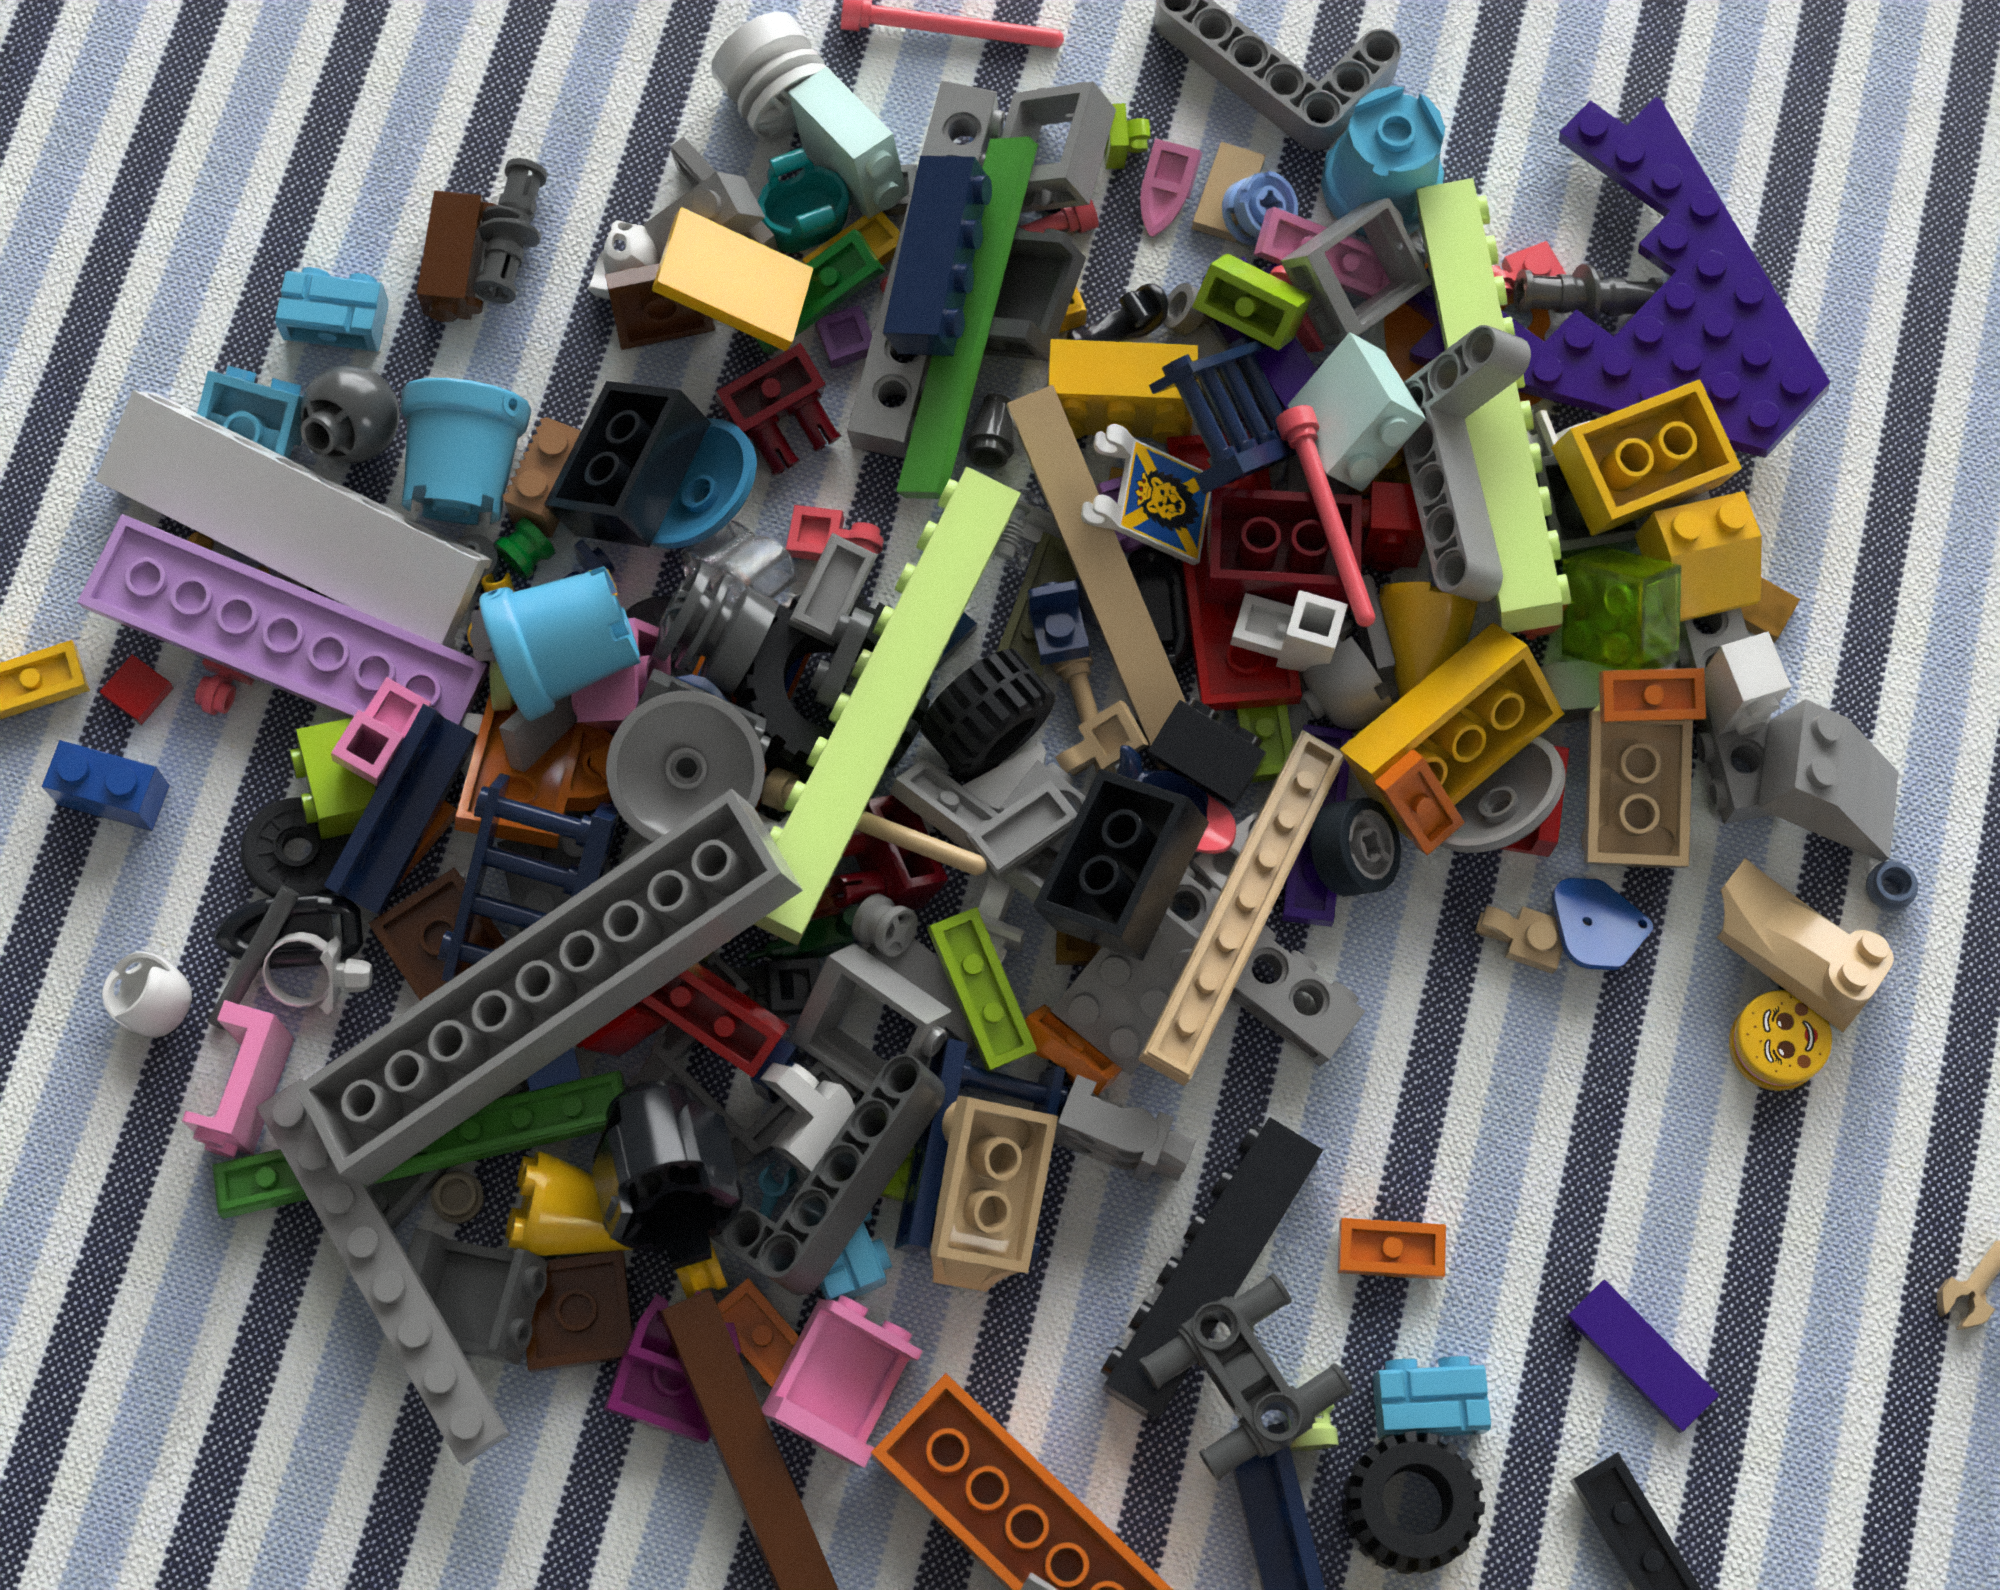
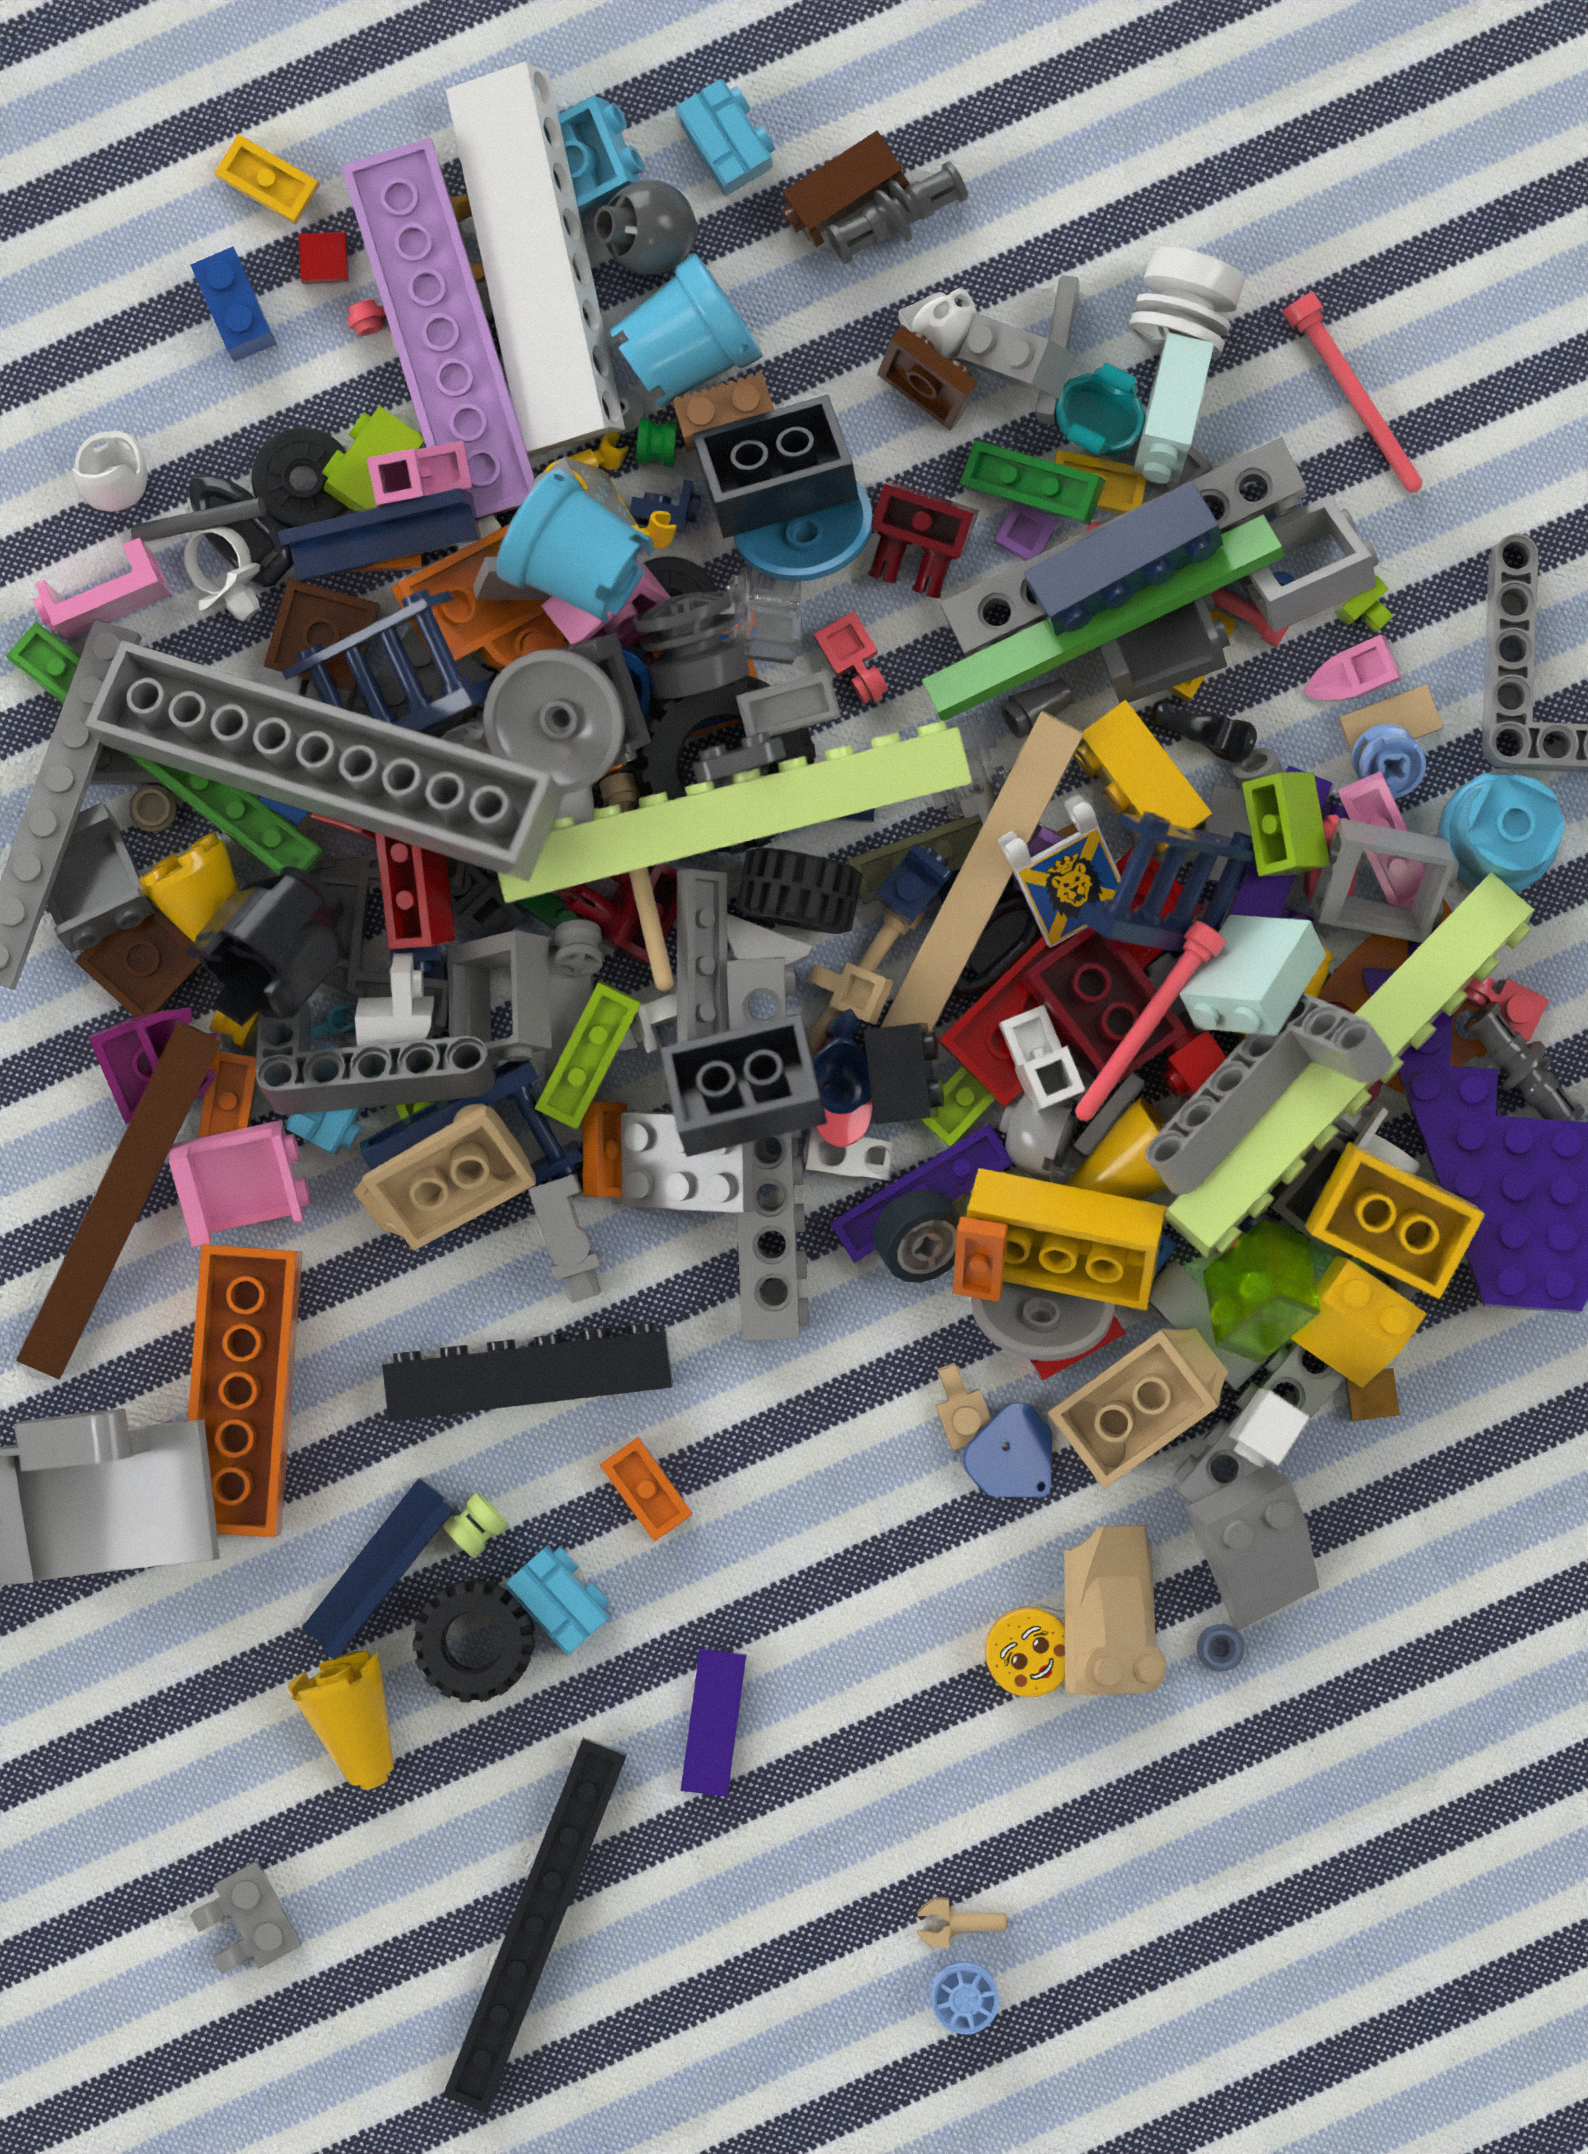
camera: 55 degrees right, 15 degrees up
(732, 279) = (976, 424): yellow tile -> none
(1023, 829) = (719, 992): light grey tile -> none
(1241, 909) = (797, 1193): tan tile -> none
(1245, 1376) = (458, 1459): dark grey piece -> none
(1652, 695) = (1204, 1366): orange plate -> none

